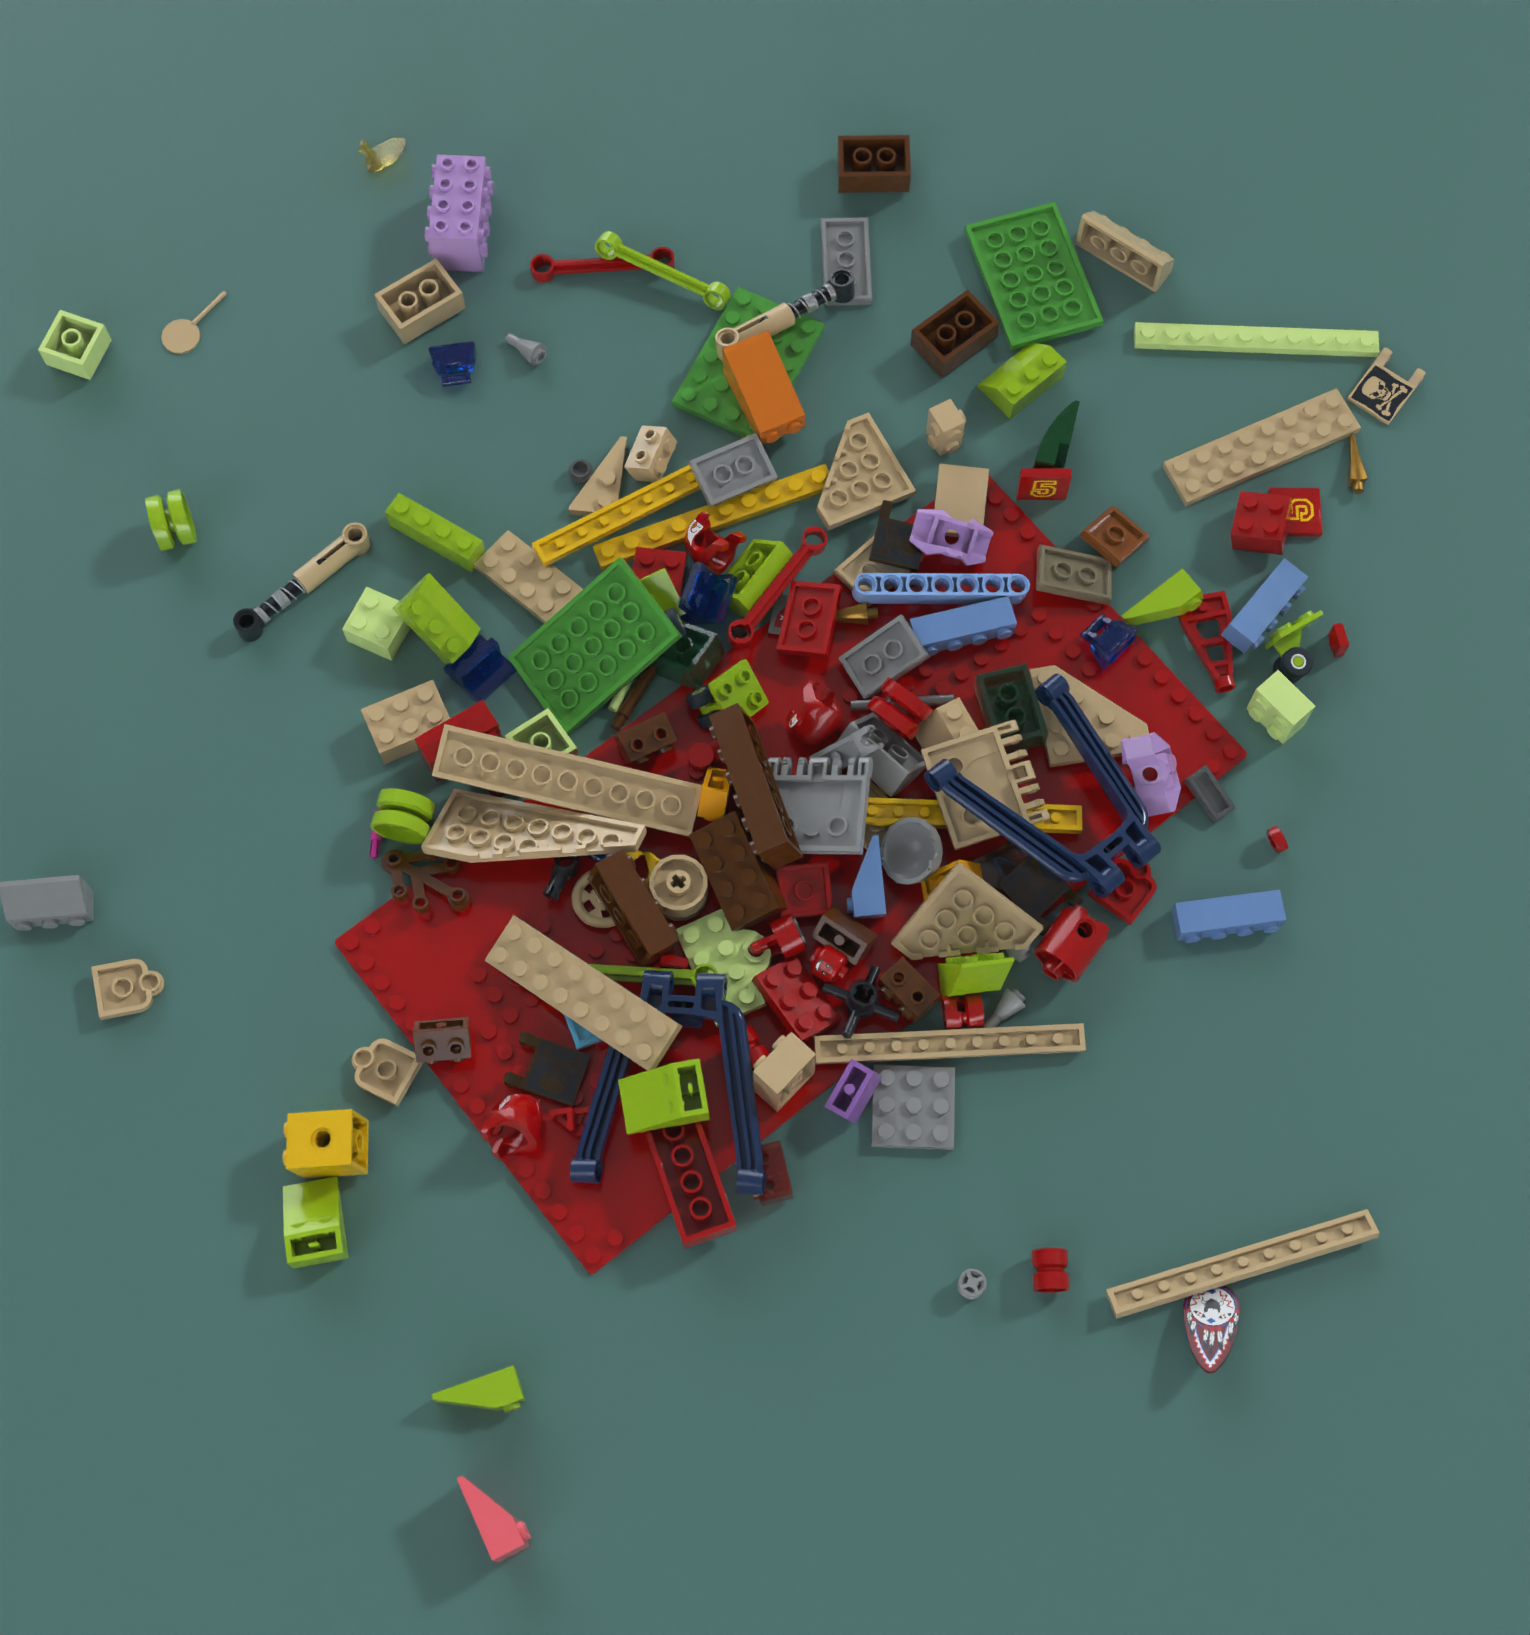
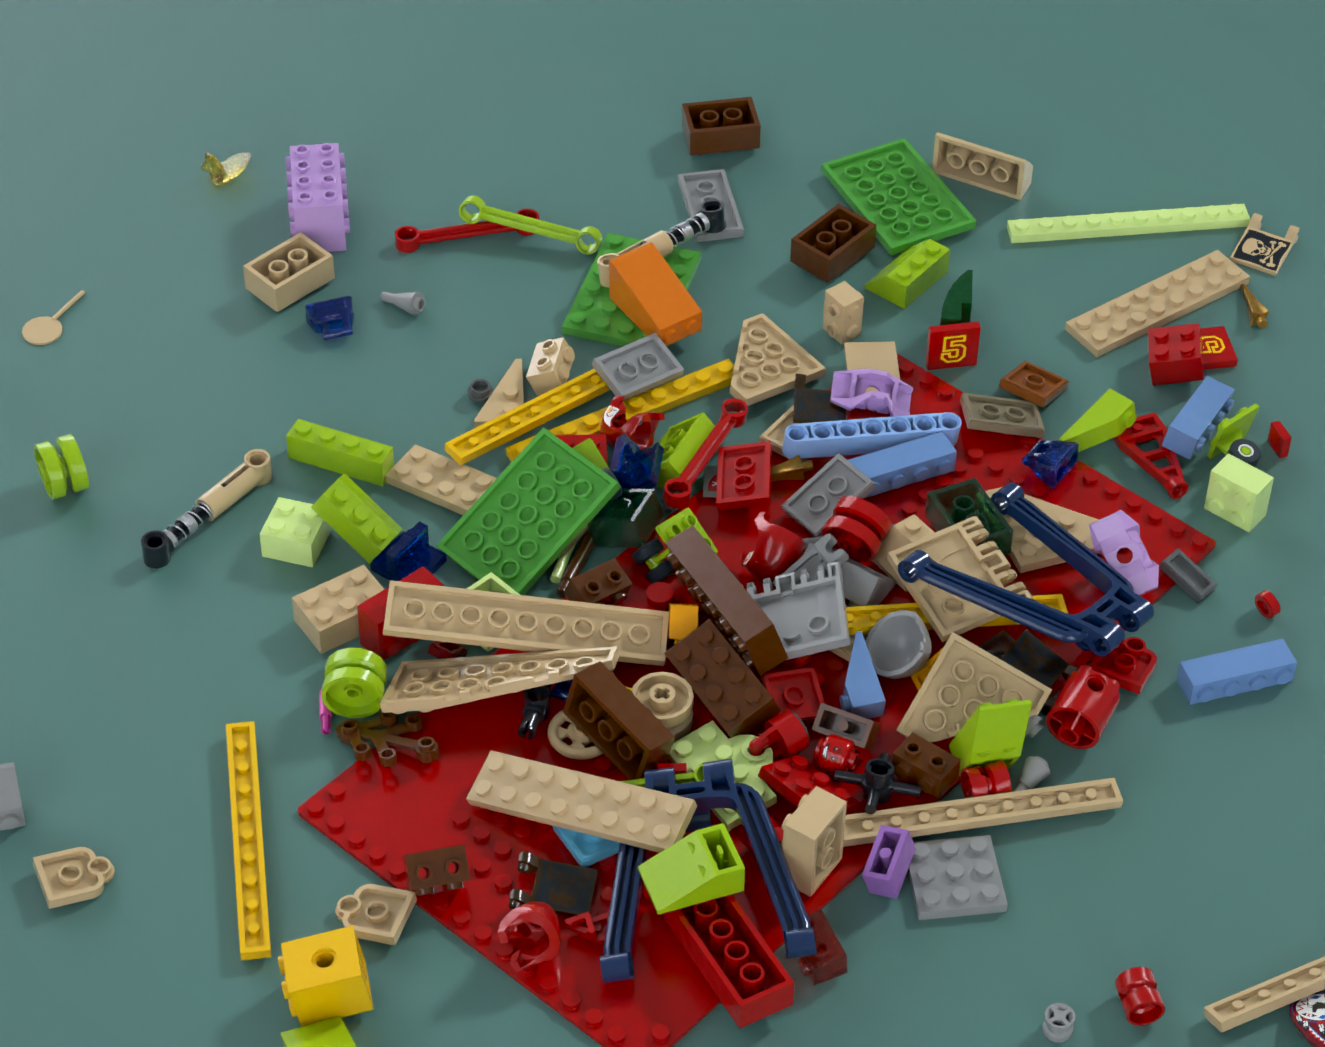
camera: 10 degrees left, 25 degrees down
(284, 971) = (248, 842): none -> yellow plate

